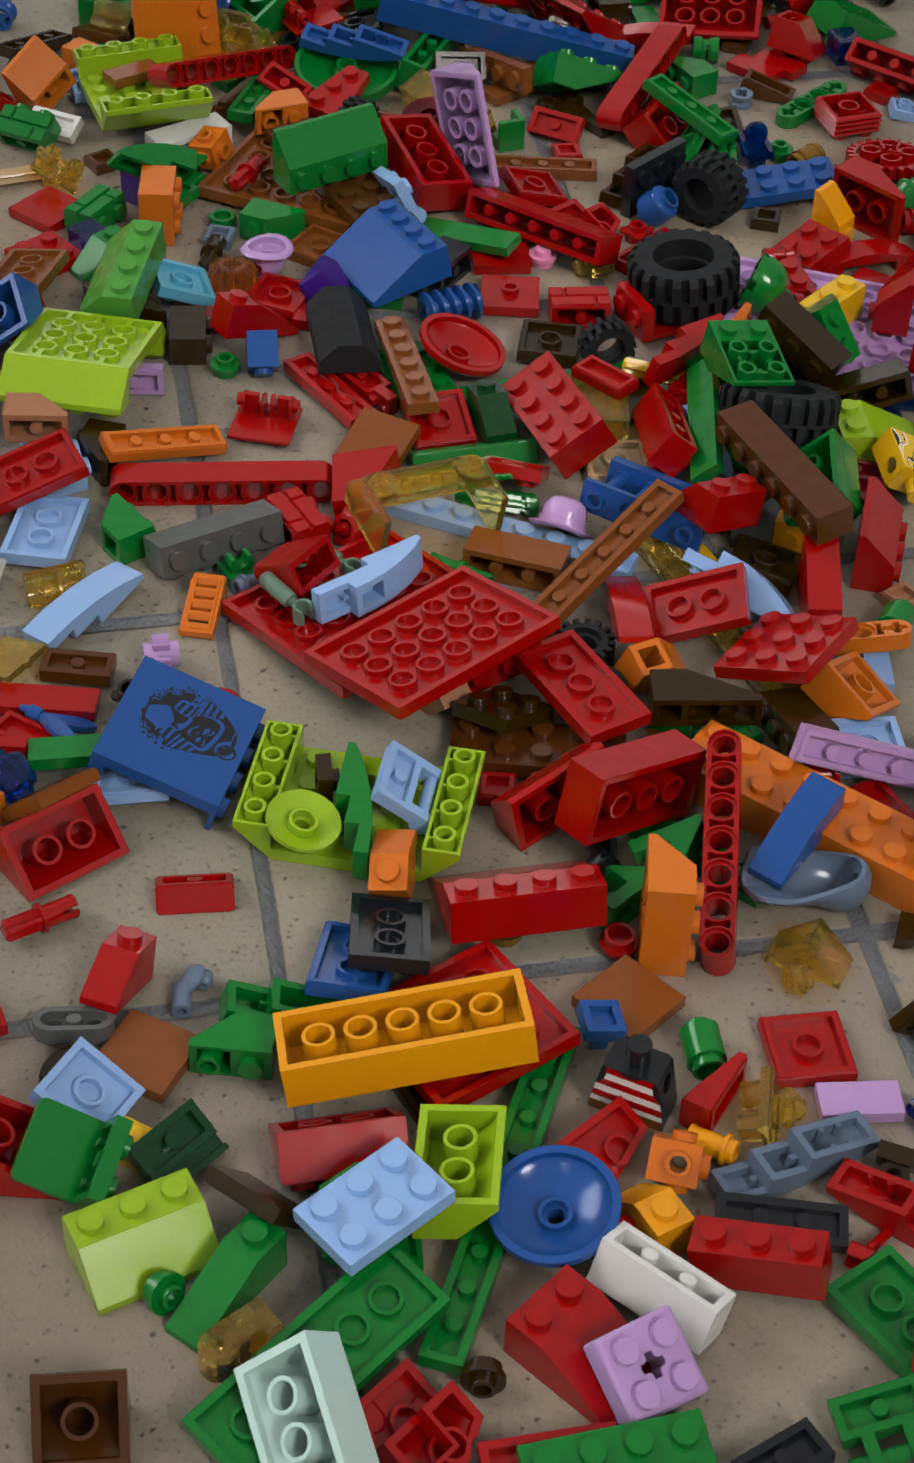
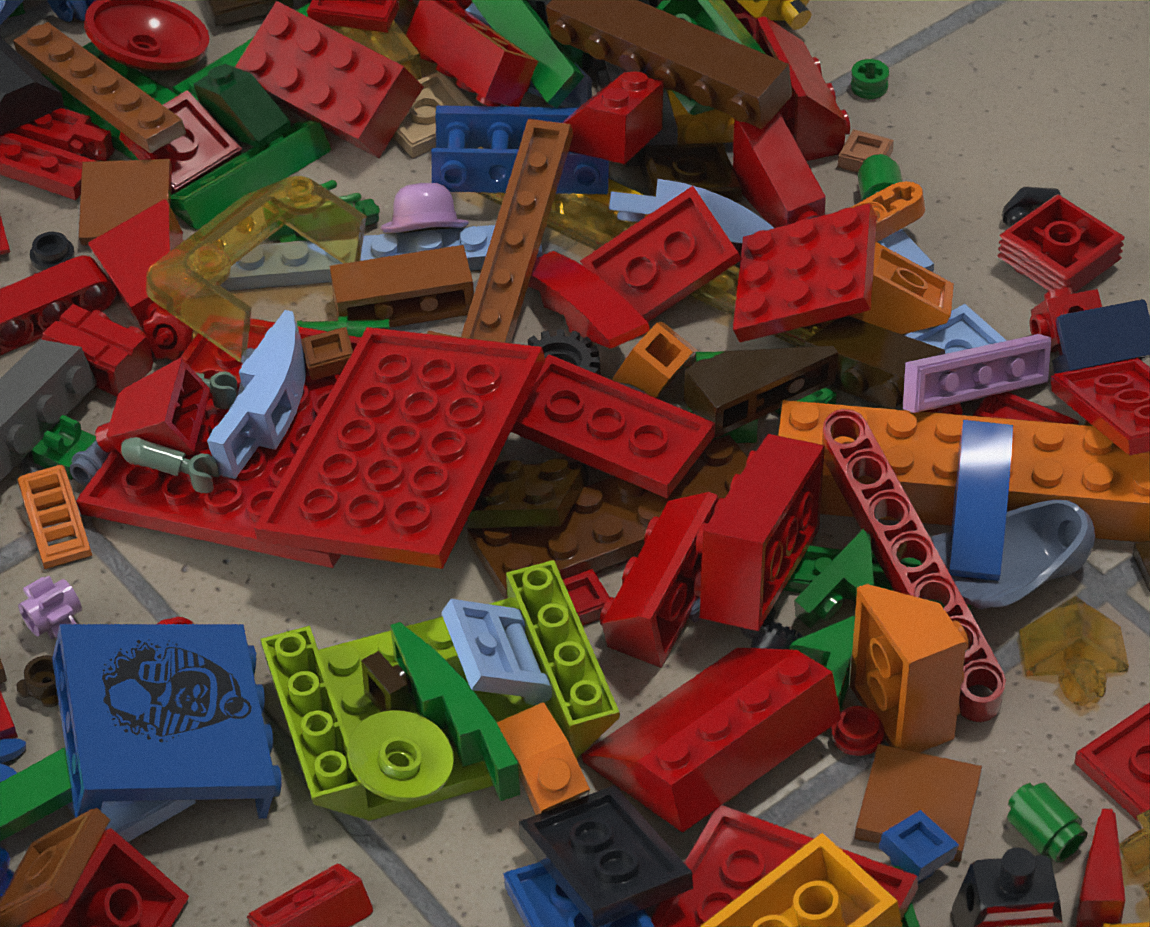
camera: 25 degrees left, 5 degrees up
(312, 451) = (50, 250): none -> black plate
(430, 570) = (327, 352): none -> dark orange tile
(525, 473) = (344, 167): red plate -> none

